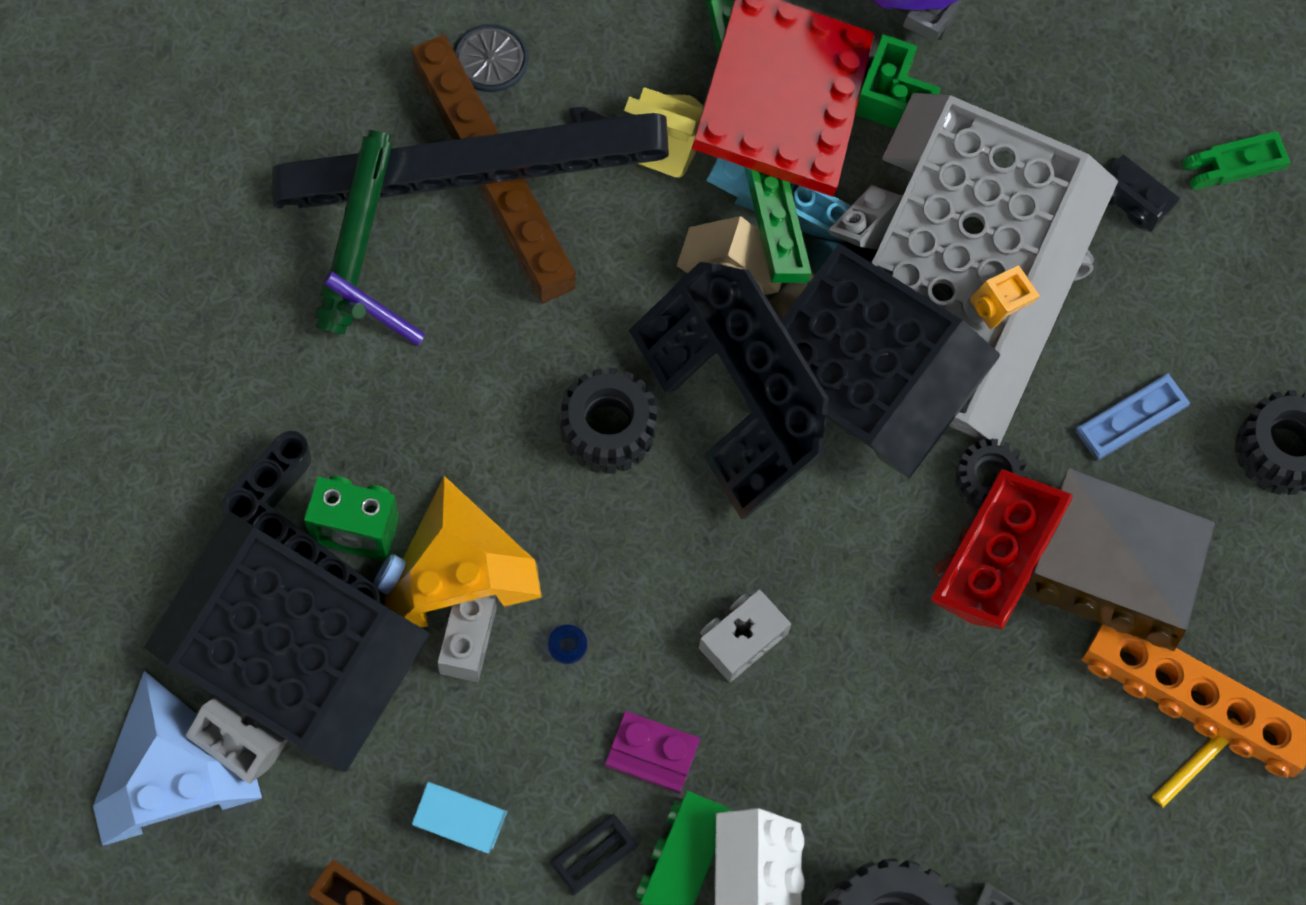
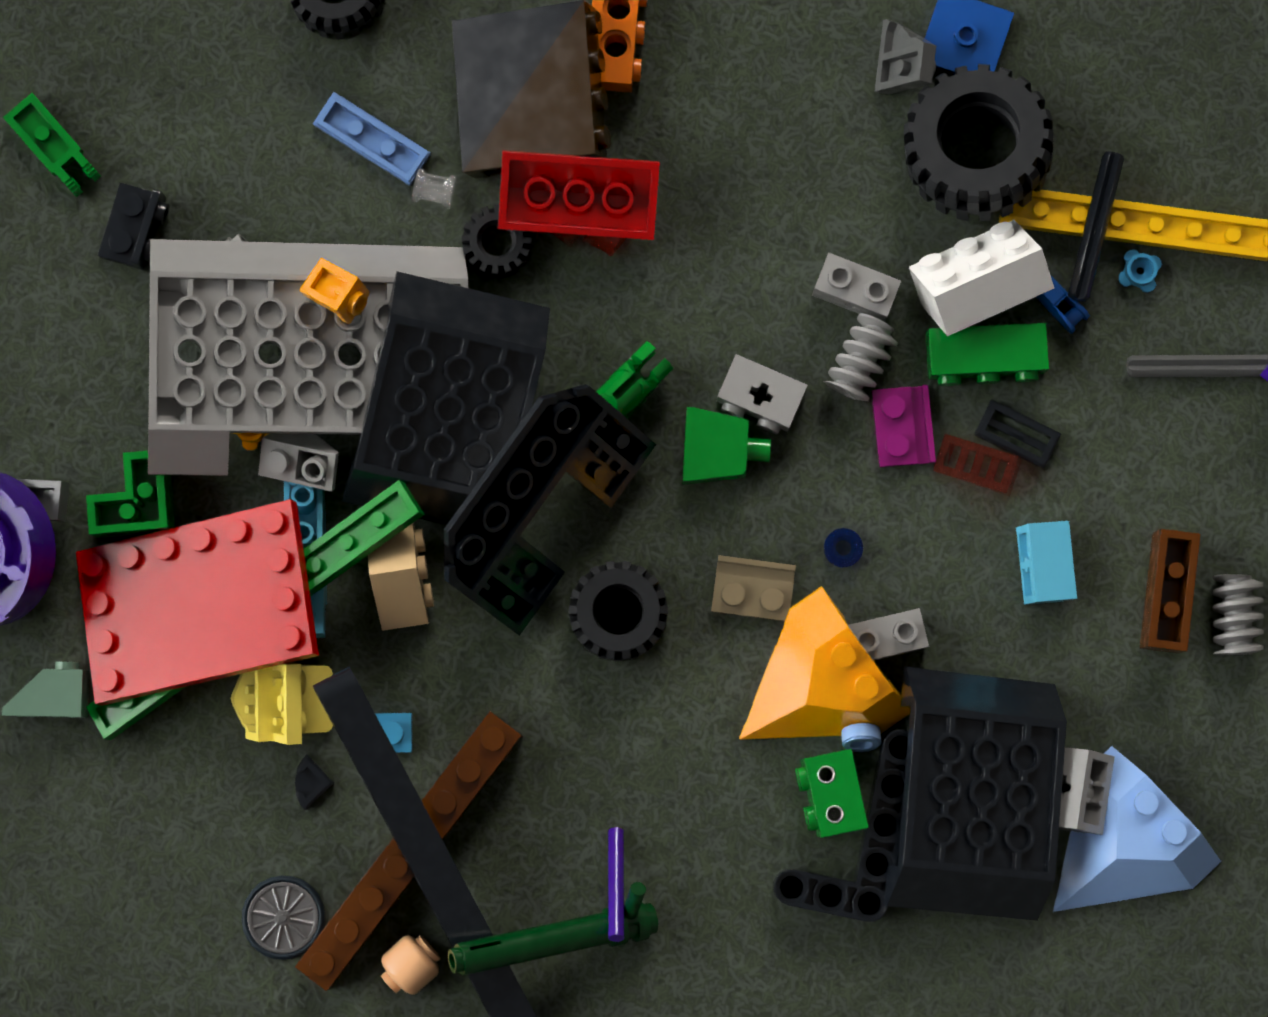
camera: 110 degrees left, 15 degrees up
(400, 121) = (410, 964): none -> light nougat head
(559, 825) = (1009, 476): none -> clear red slope
(571, 549) = (753, 588): none -> dark tan plate
(598, 202) = (398, 730): none -> dark azure plate
(713, 575) = (719, 447): none -> green torso
(731, 740) = (861, 357): none -> light grey piece
(803, 766) = (856, 287): none -> light grey brick
(805, 520) = (628, 387): none -> green plate
(1063, 445) = (434, 188): none -> clear bush

